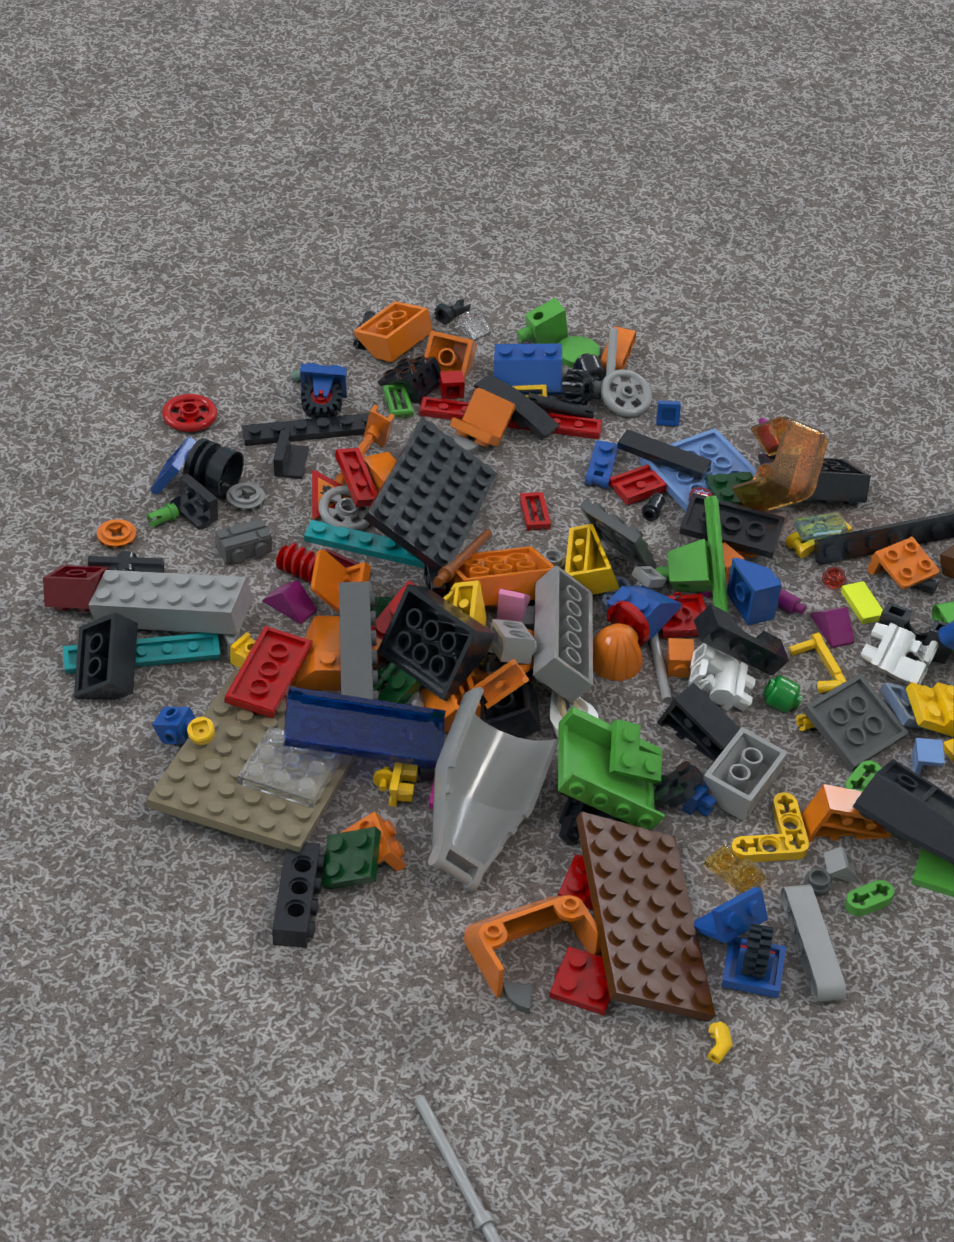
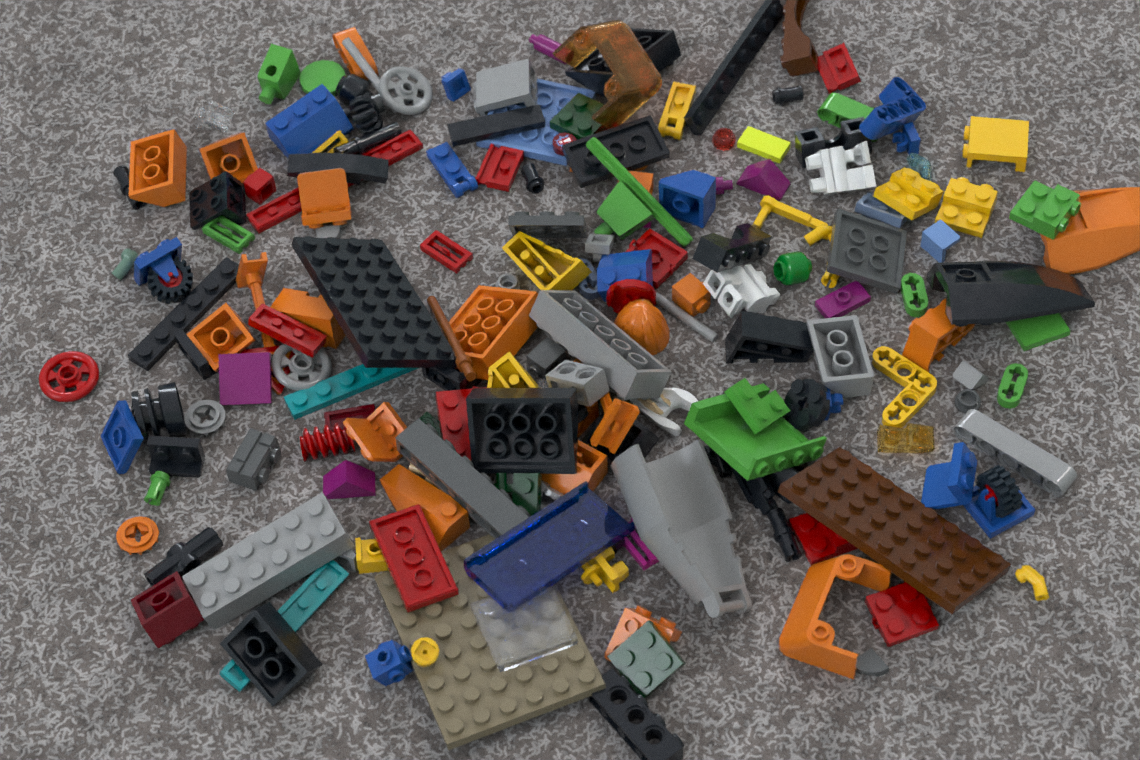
camera: 35 degrees left, 10 degrees up
(297, 489) = (245, 378): none -> magenta tile
(311, 451) = (221, 334): none -> orange slope
(446, 314) = (179, 120): black piece -> none
(512, 605) = (536, 349): bright pink slope -> none
(558, 861) = (784, 534): none -> black pin
(703, 433) = (505, 86): none -> light grey panel
(800, 745) = (843, 300): none -> magenta plate
(820, 526) = (677, 102): clear light blue plate -> none
(904, 563) = (766, 88): orange bracket -> none

